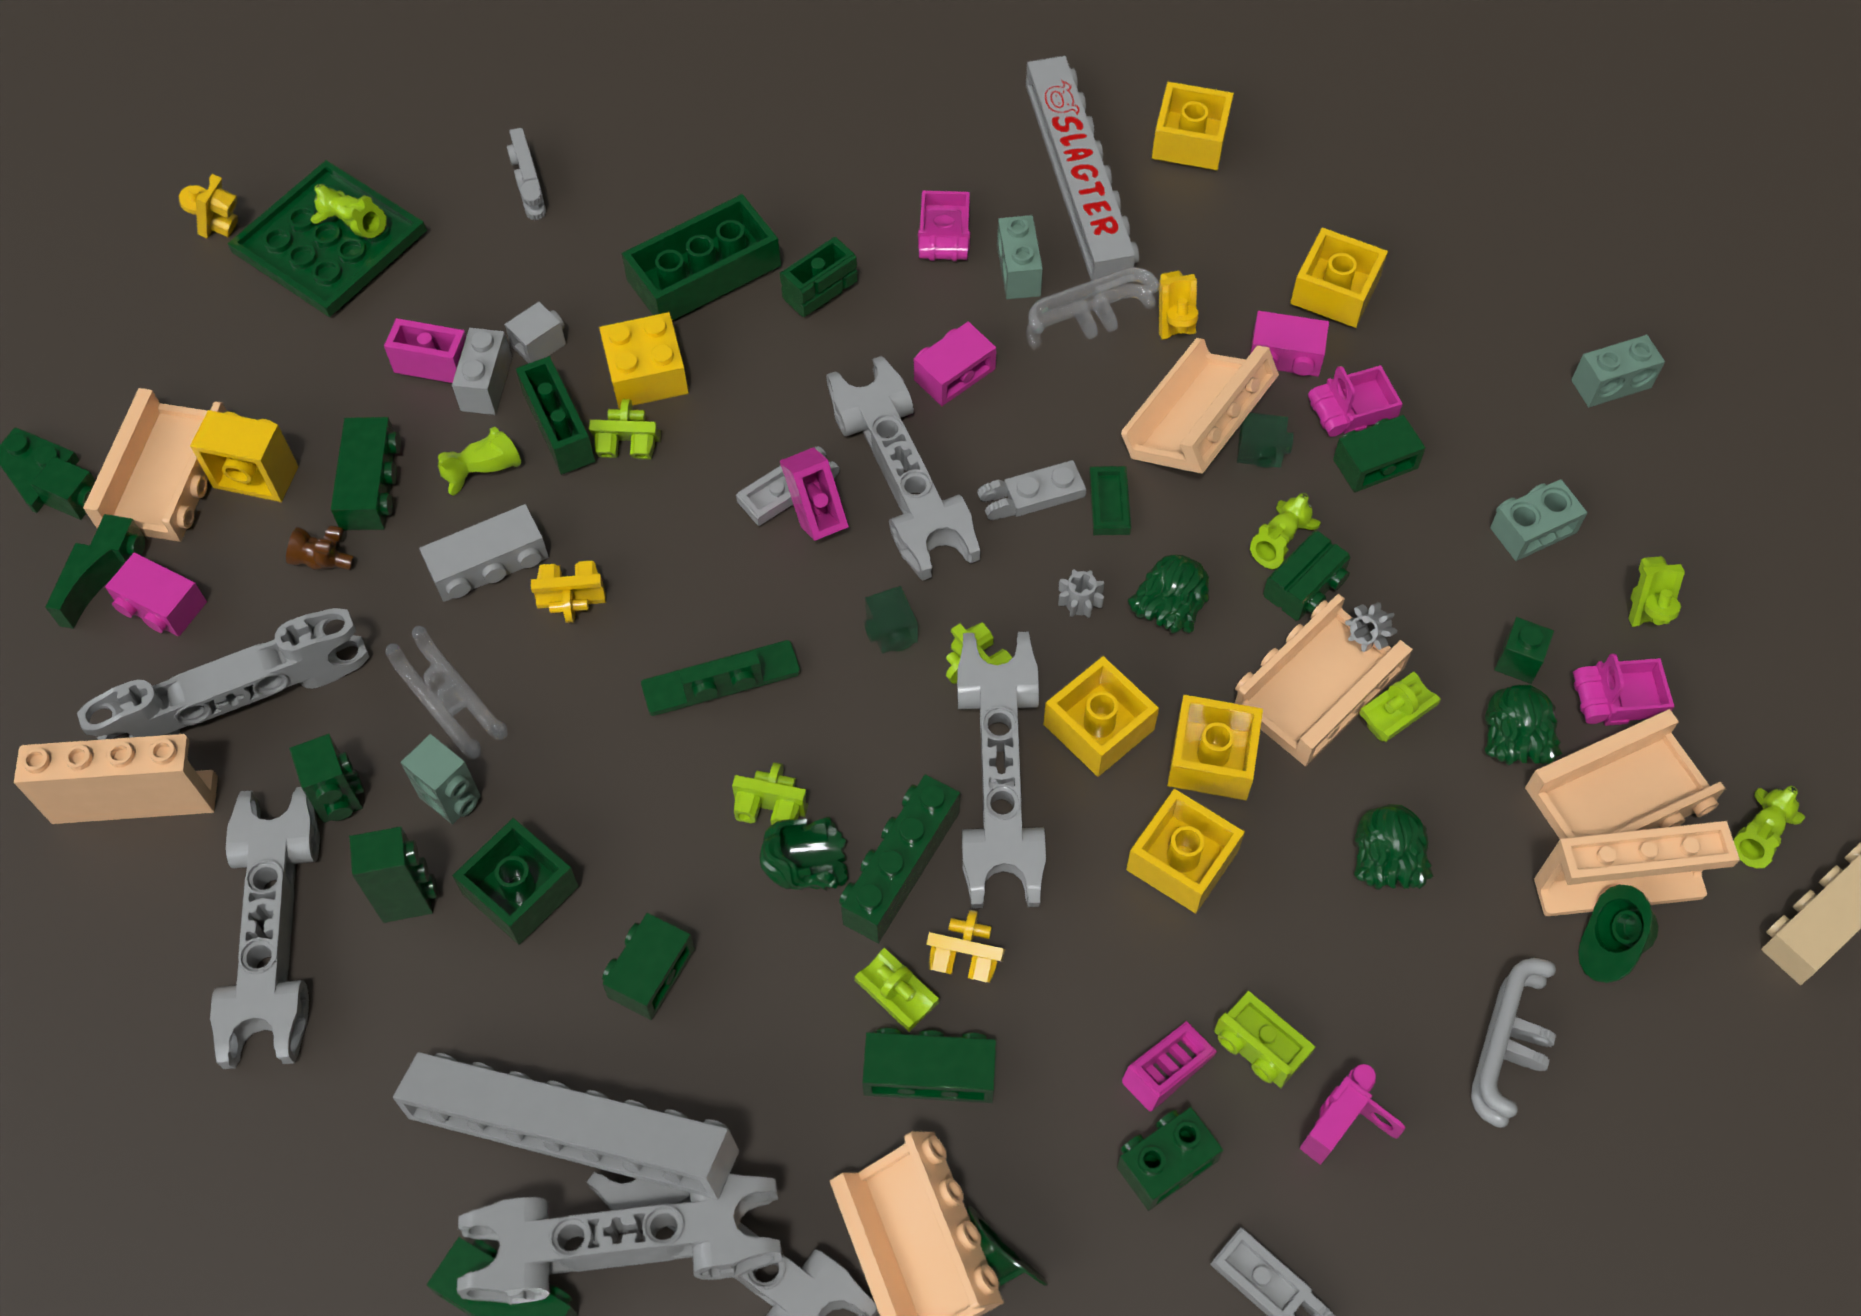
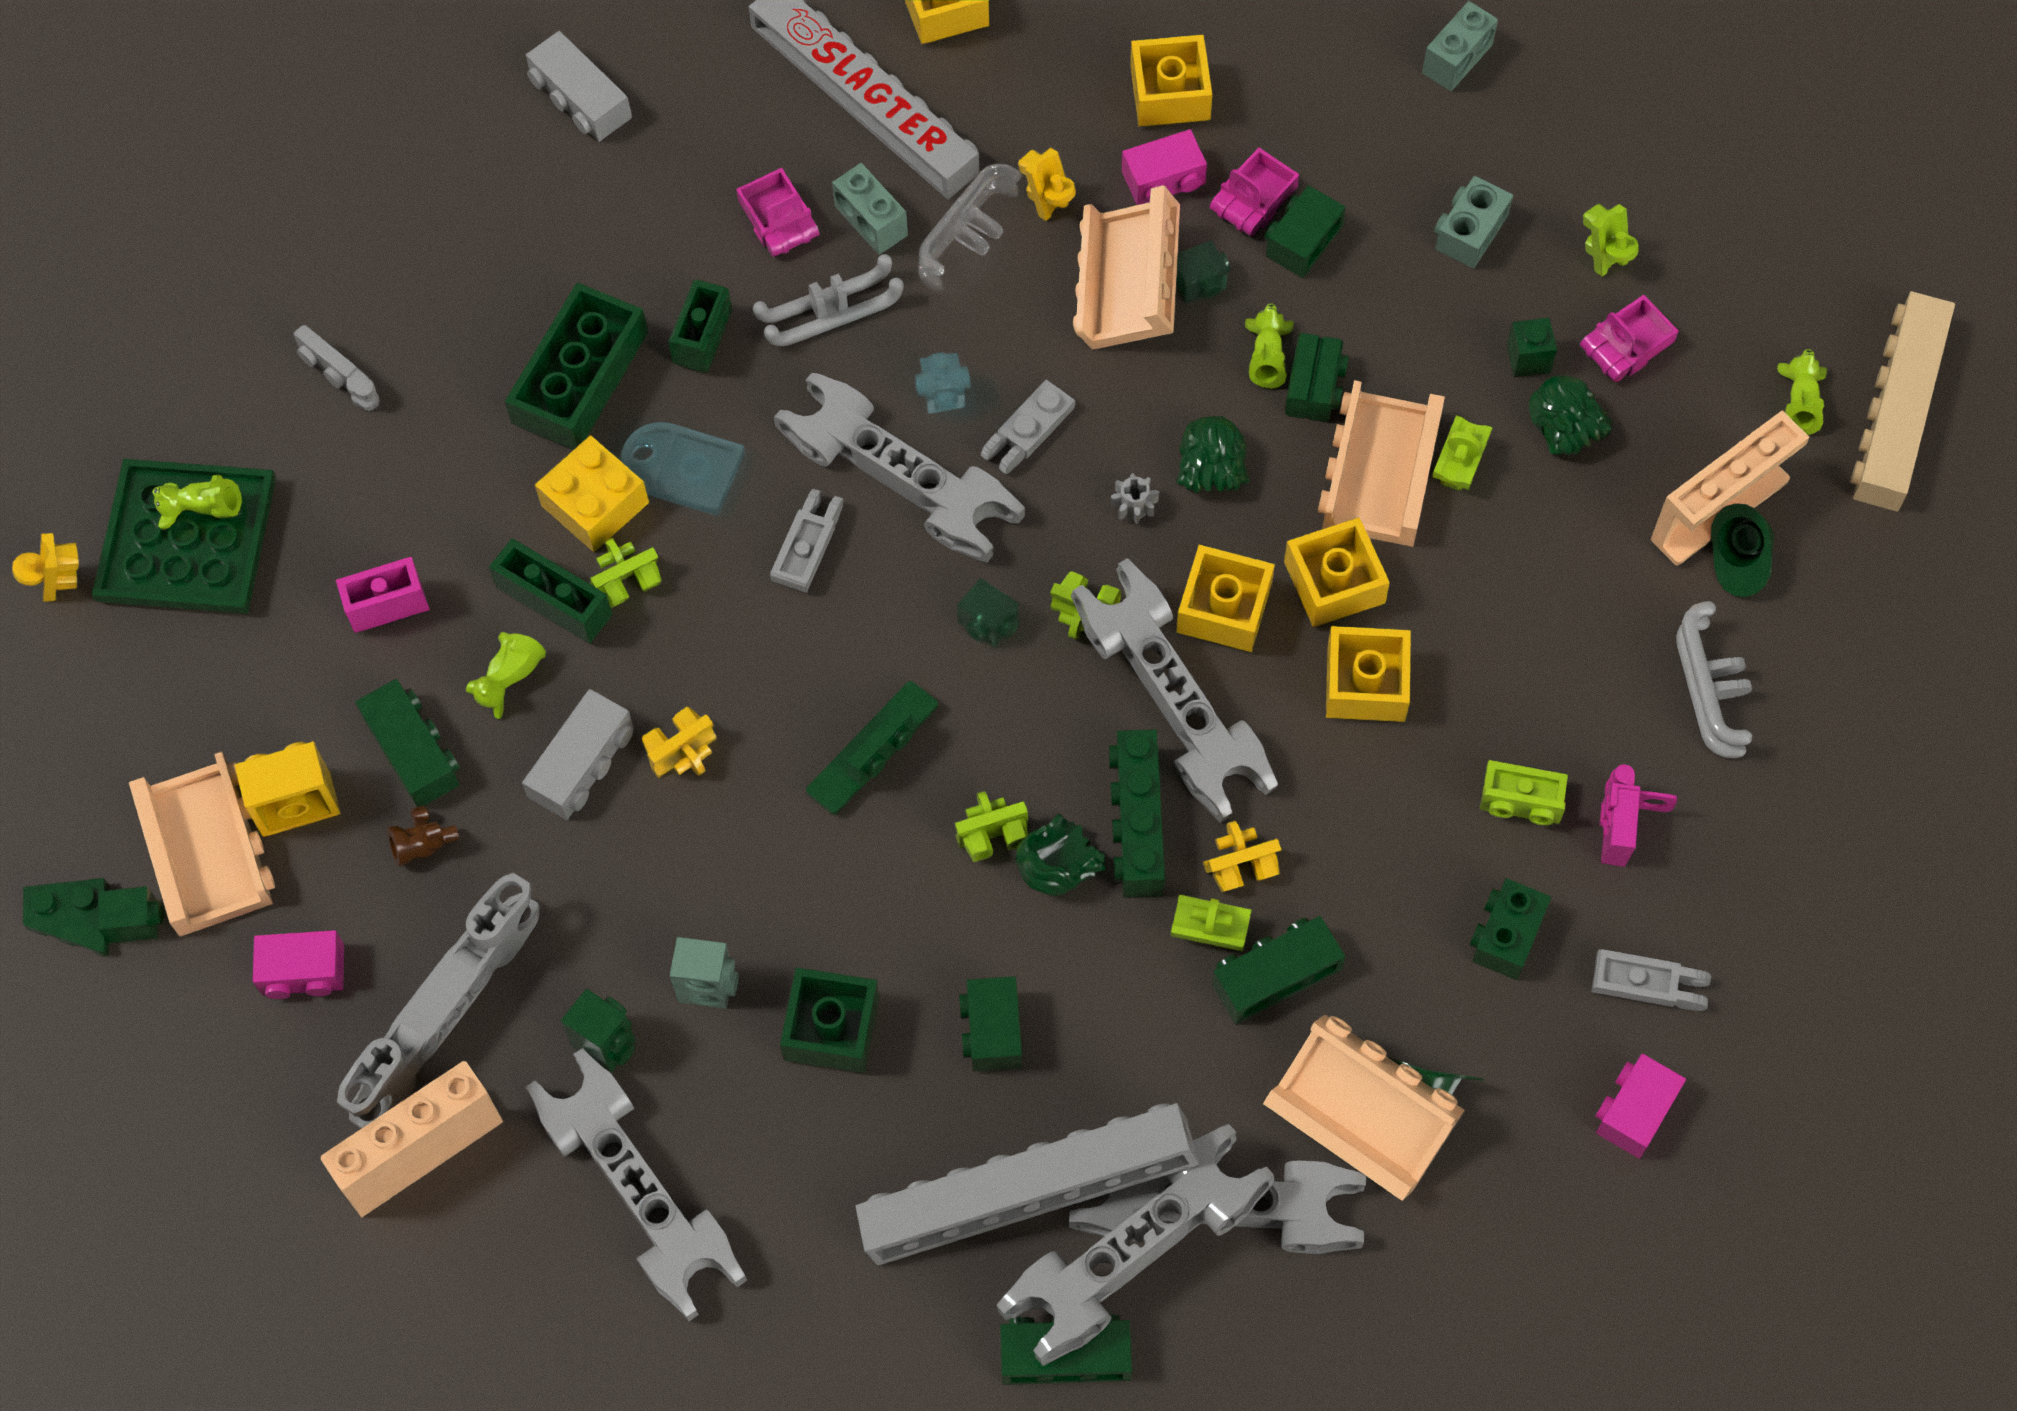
camera: 30 degrees left, 5 degrees up
(93, 567) = (215, 969): dark green slope -> none
(392, 874) = (730, 1073): dark green brick -> none
(445, 693) = (640, 900): clear piece -> none
(482, 371) = (446, 586): light grey brick -> none
(536, 333) = (468, 522): light grey brick -> none
(735, 380) = (684, 465): none -> clear light blue tile
(814, 493) = (847, 535): dark pink brick -> none
(856, 62) = (578, 86): none -> light grey brick
(934, 314) = (830, 305): none -> light grey piece
(954, 363) = (879, 343): dark pink brick -> none
(983, 417) = (942, 382): none -> clear light blue brick
(1109, 500) = (1100, 399): dark green tile -> none
(1149, 1084) = (1454, 880): dark pink slope -> none
(1360, 631) = (1396, 385): light grey gear -> none
(1392, 848) = (1528, 578): dark green hair -> none
(1624, 784) = (1676, 423): light nougat panel -> none

